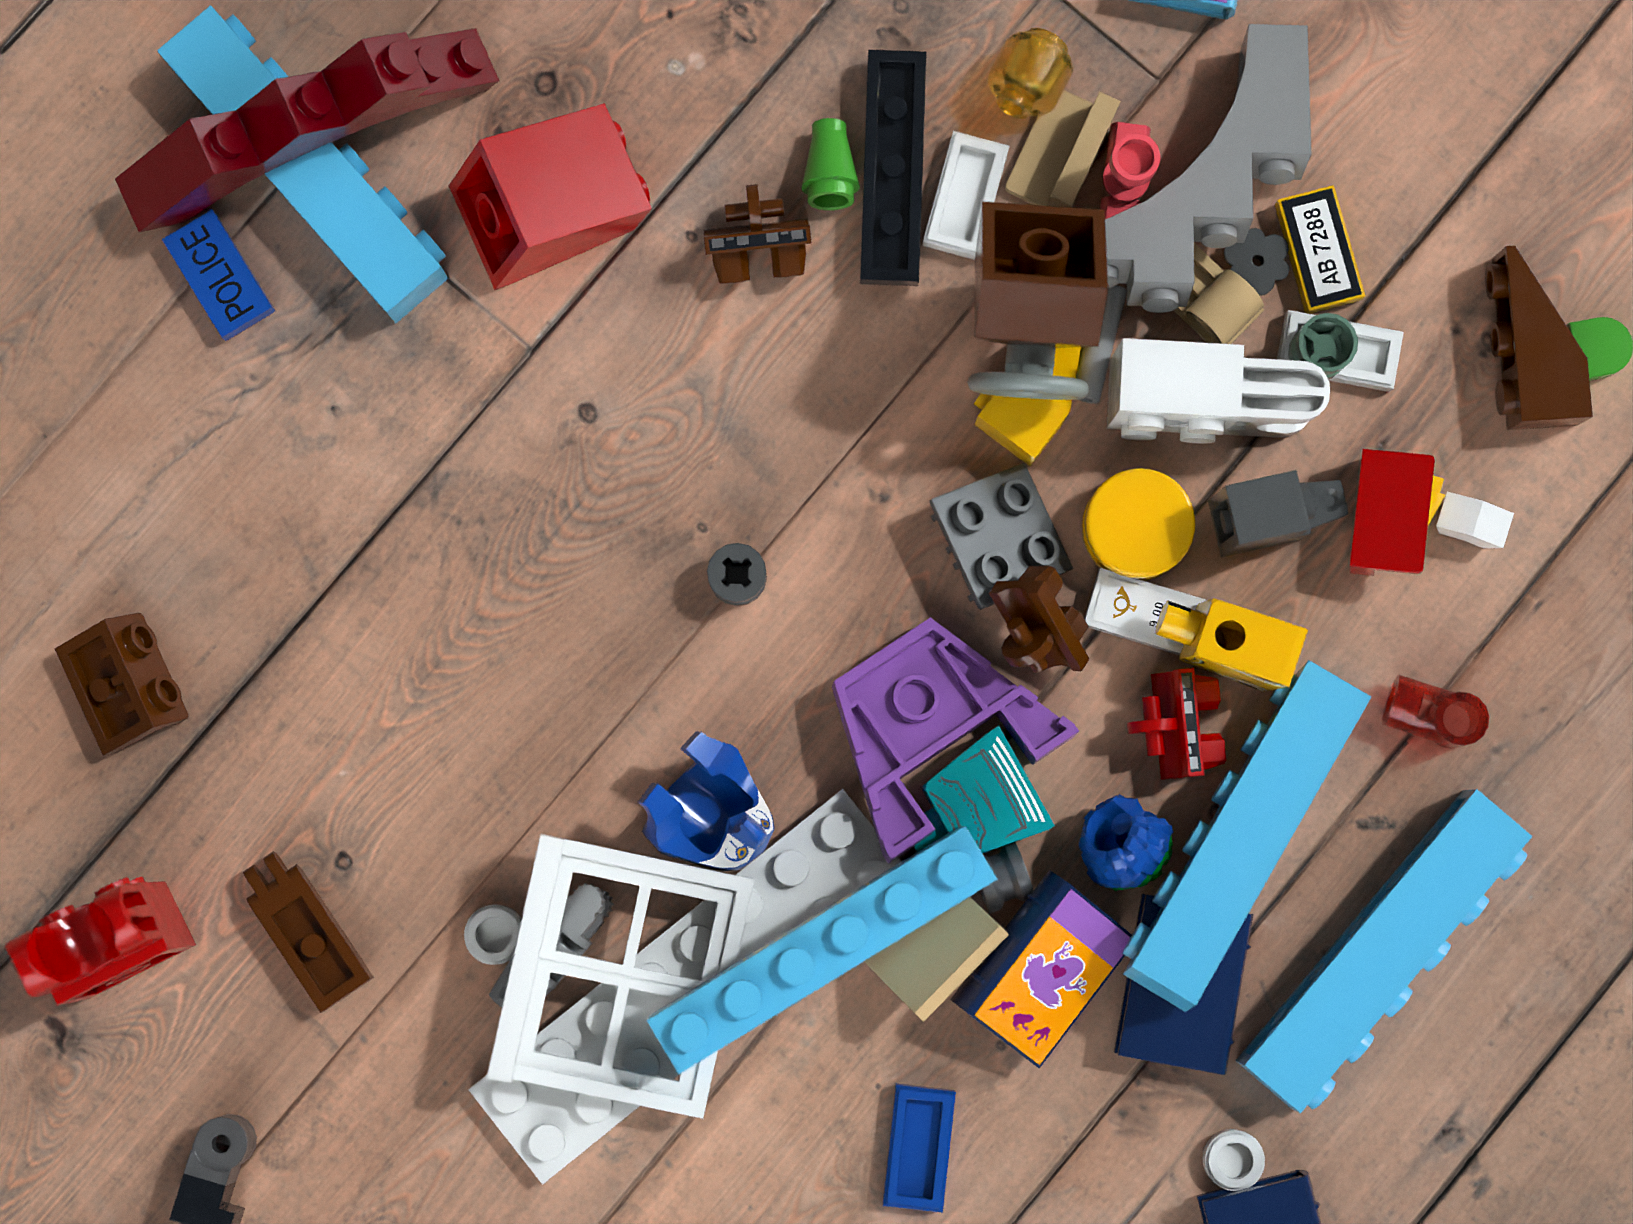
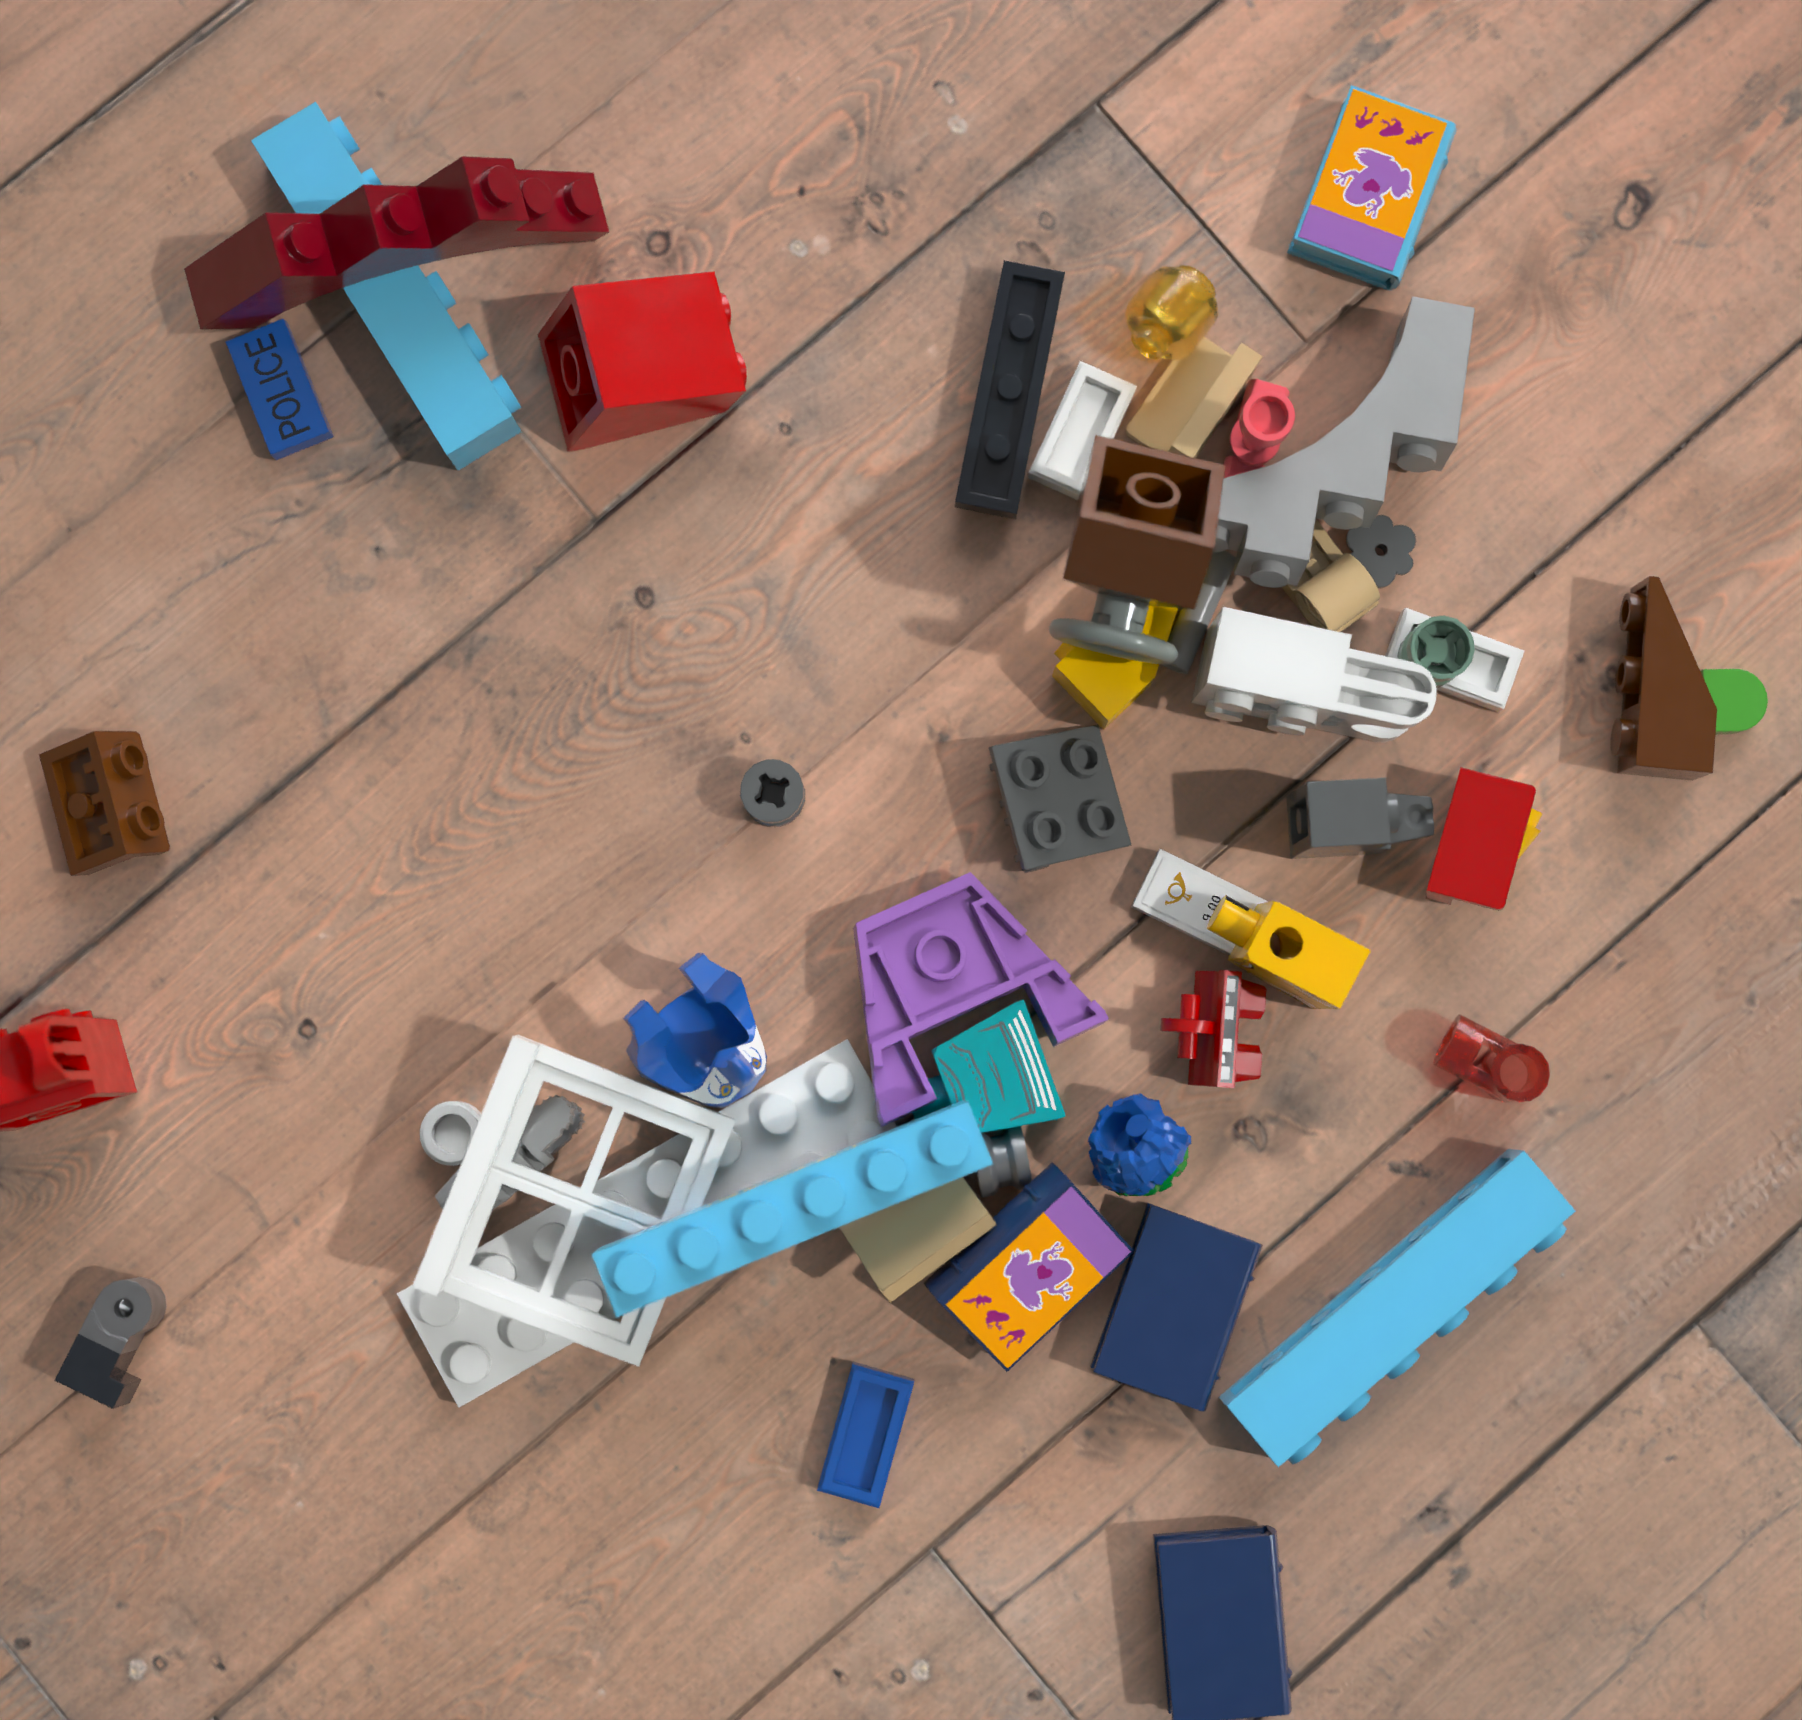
camera: 10 degrees right, 0 degrees up
(306, 933) = (253, 1099): reddish brown hinge -> none
(783, 238) = (823, 443): reddish brown hips -> none
(830, 169) = (942, 381): bright green cone -> none
(1039, 628) = (1084, 903): reddish brown hips -> none
(1138, 524) = (1208, 809): yellow head -> none
(1233, 1159) = (1199, 1503): white tile -> none
(1245, 837) = (1268, 1160): medium azure brick -> none
(1319, 249) = (1449, 549): tile -> none
(1474, 521) = (1567, 864): white piece -> none

